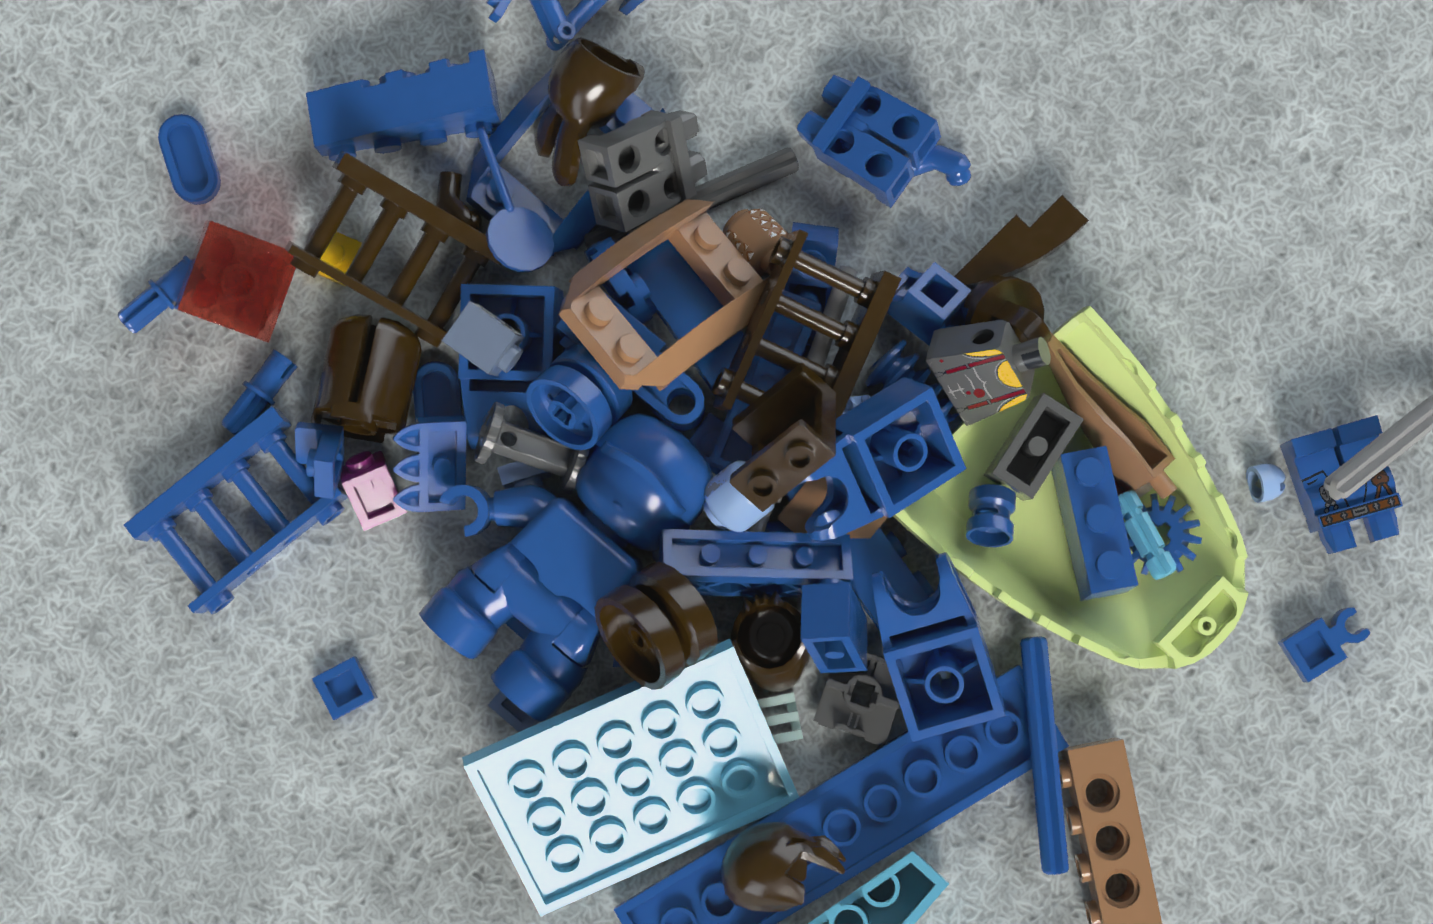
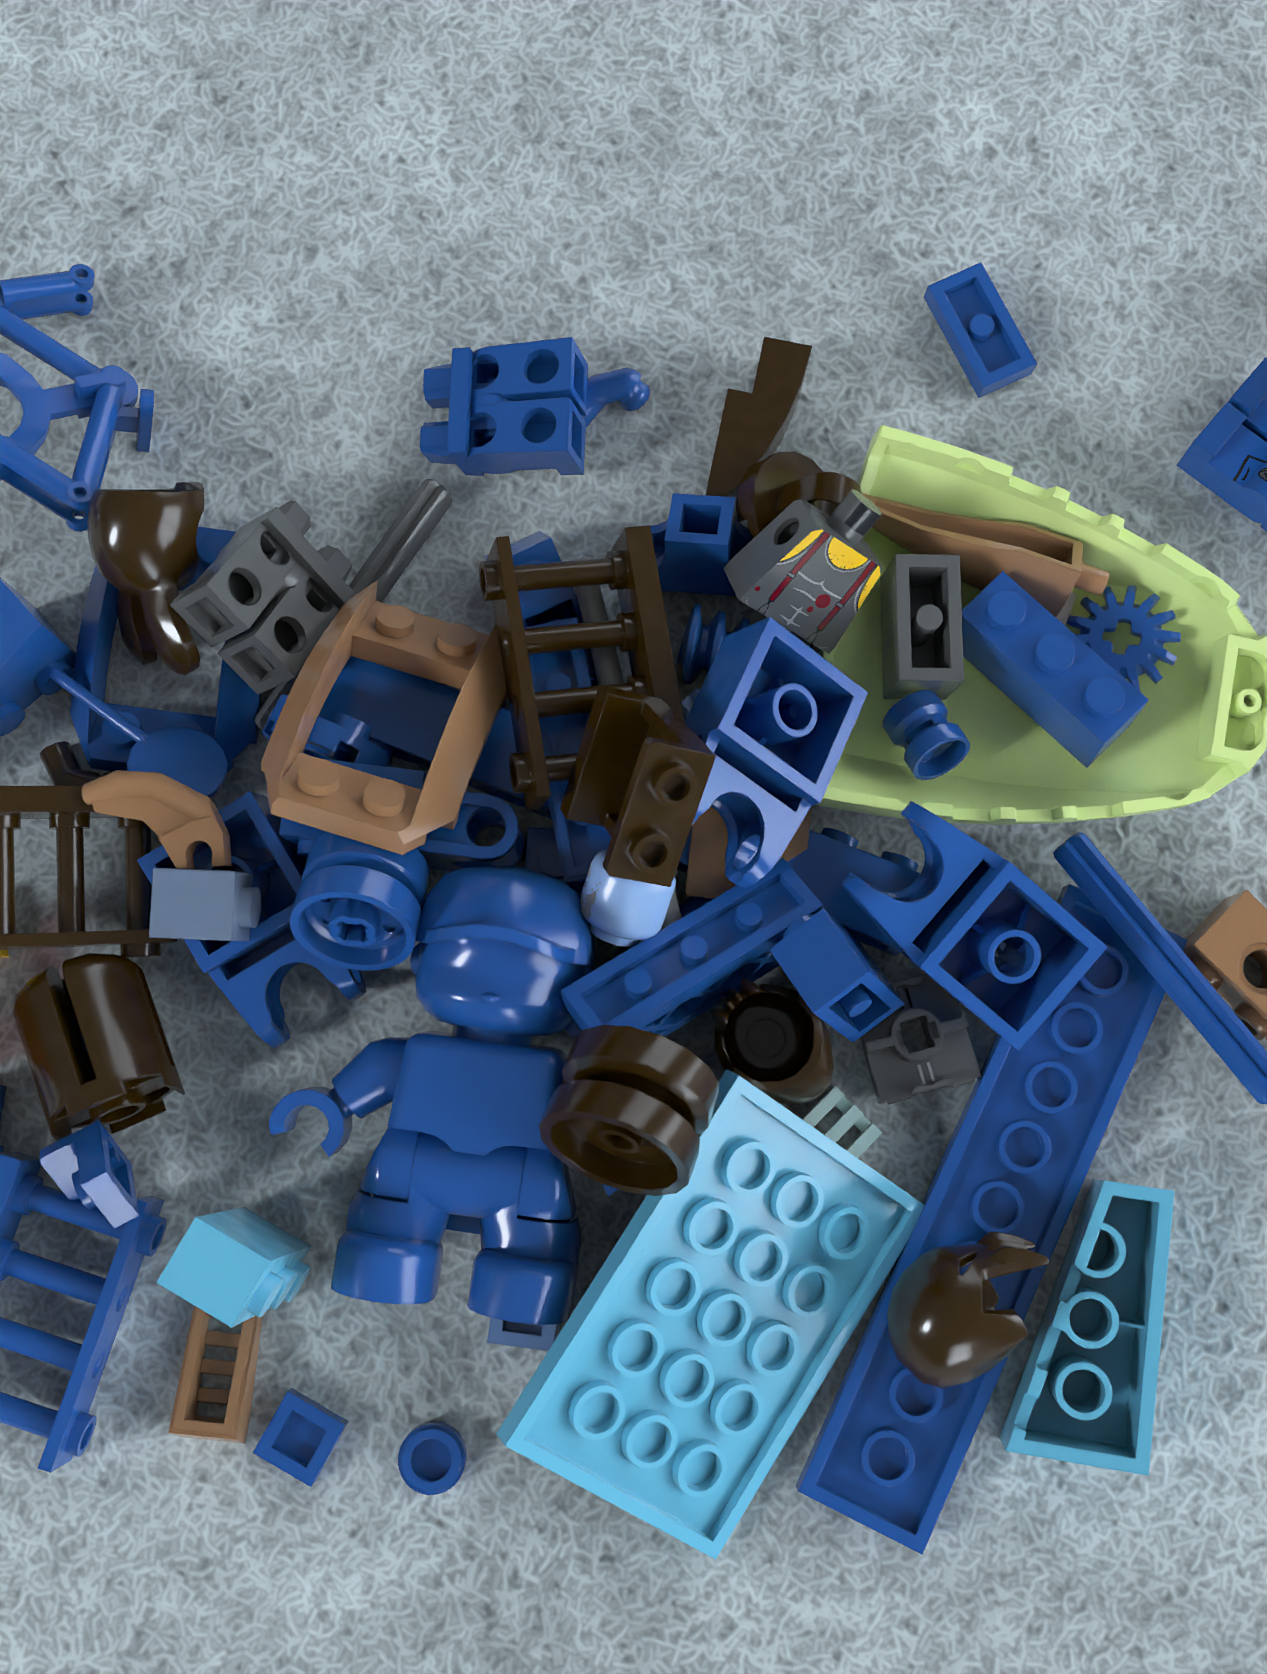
camera: 35 degrees left, 5 degrees down
(322, 642) = (239, 1397): none -> medium nougat slope
(370, 489) = (183, 1173): bracket -> none
(374, 565) = (236, 1265): none -> medium azure brick
(413, 750) = (432, 1458): none -> blue tile
(435, 466) = (241, 1097): blue plate -> none
(437, 391) = (206, 1026): blue tile -> none
(499, 266) = (168, 807): none -> medium nougat piece
(521, 474) = (354, 1032): light blue plate -> none
(529, 448) = (342, 1000): dark grey hose -> none
(754, 236) = (452, 595): medium nougat head -> none
(1145, 536) = (1118, 648): medium azure axle -> none
(1210, 275) = (980, 330): none -> blue plate
(1271, 481) = (1201, 514): light blue hinge -> none

